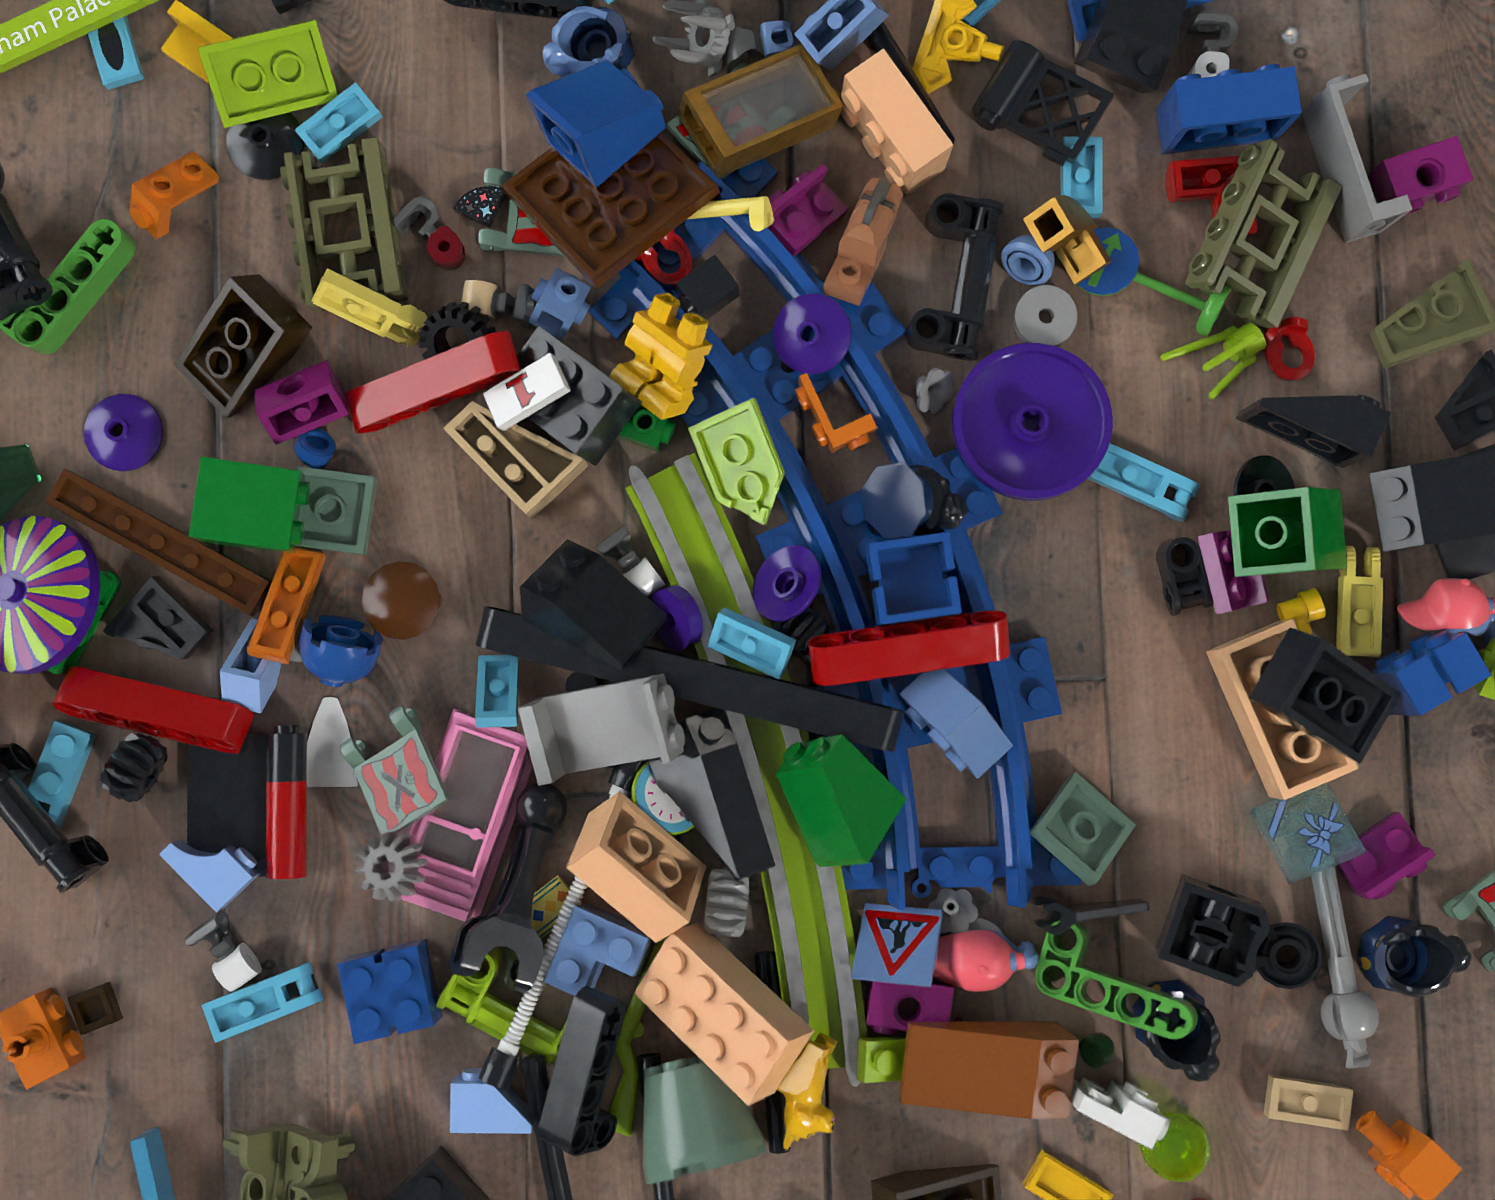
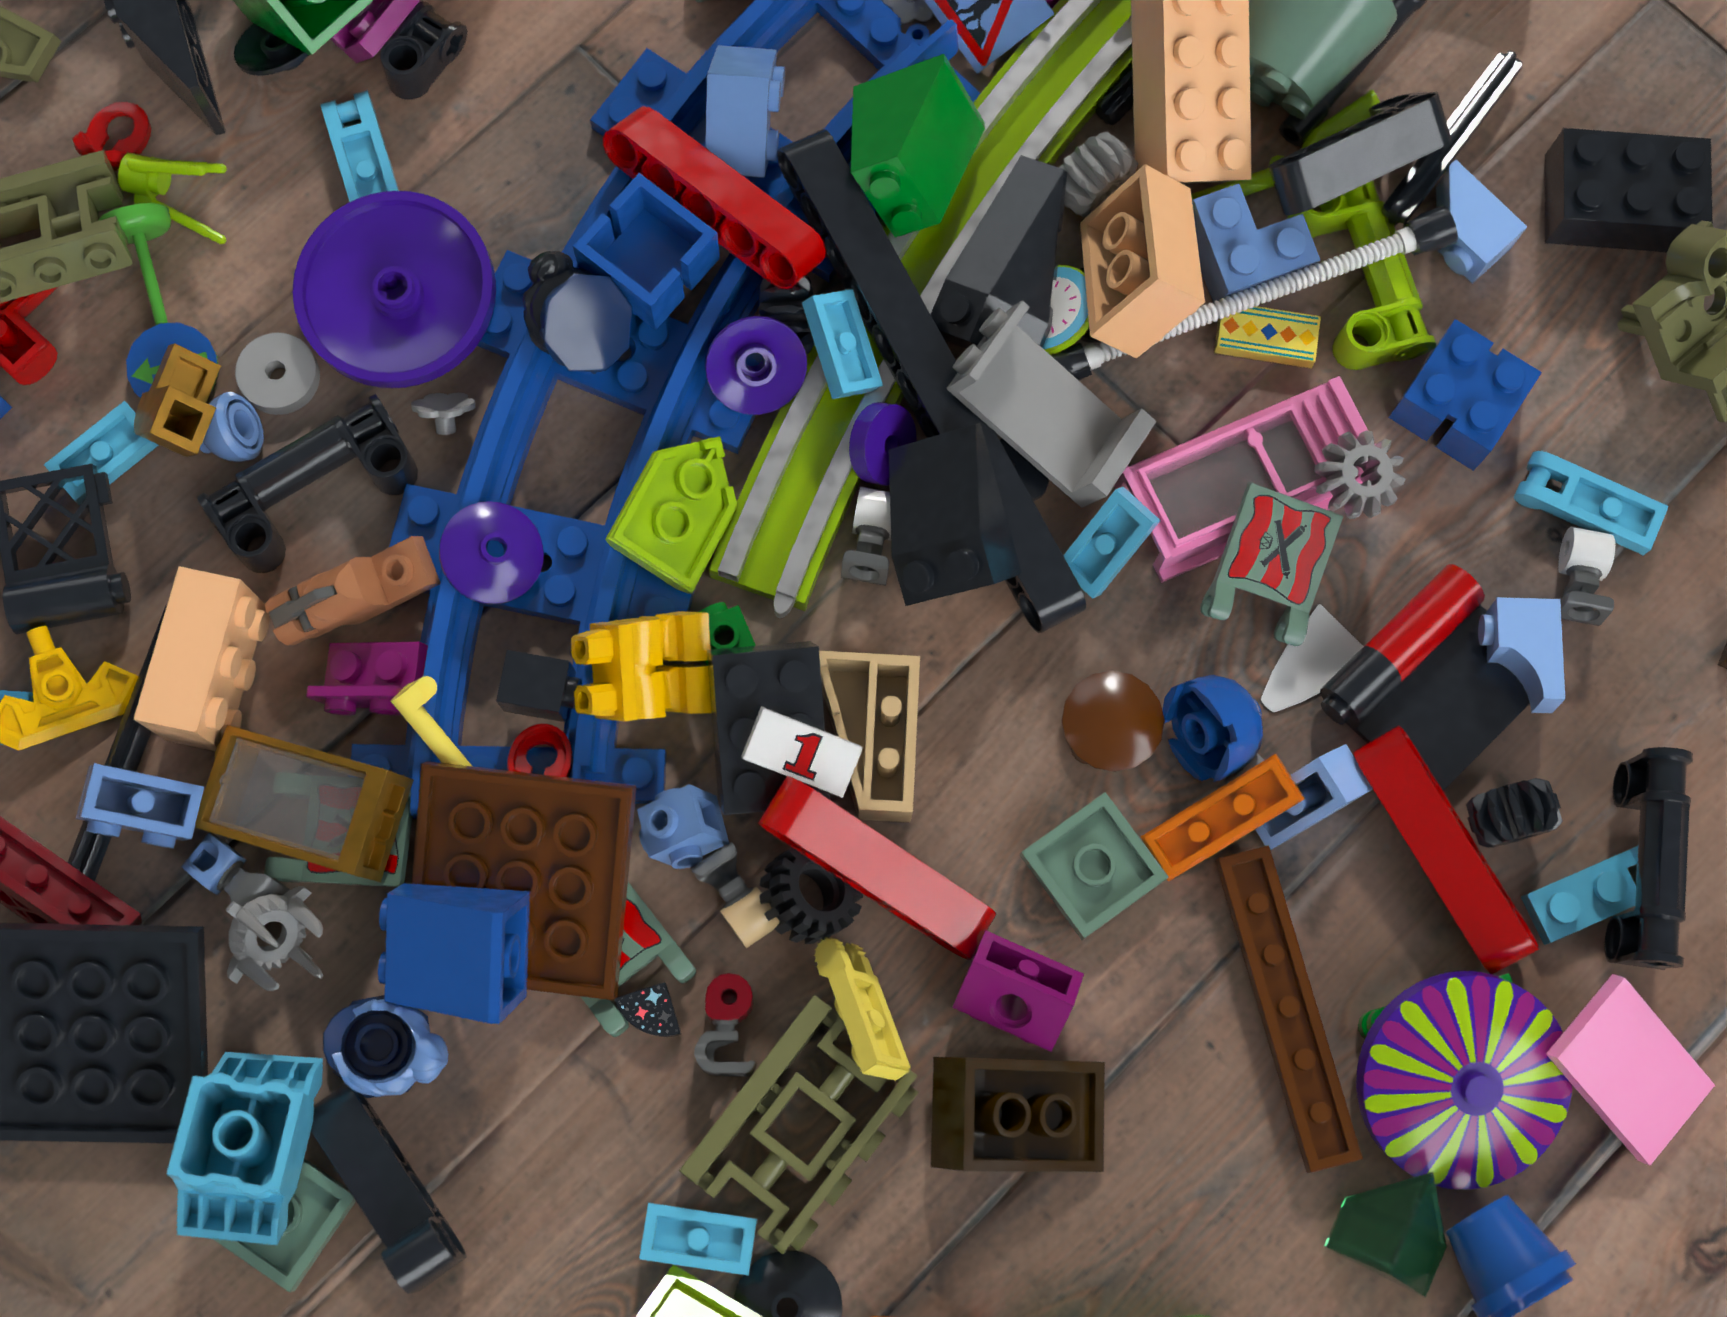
camera: 140 degrees left, 10 degrees down
(140, 435) = (1191, 1166): dark purple dish -> none
(160, 621) = (1358, 930): black wing -> none
(248, 505) = (1167, 935): green slope -> none
(314, 448) = (1051, 938): blue tile -> none
(509, 916) = (1296, 342): black piece -> none
(853, 434) = (561, 430): orange bracket -> none

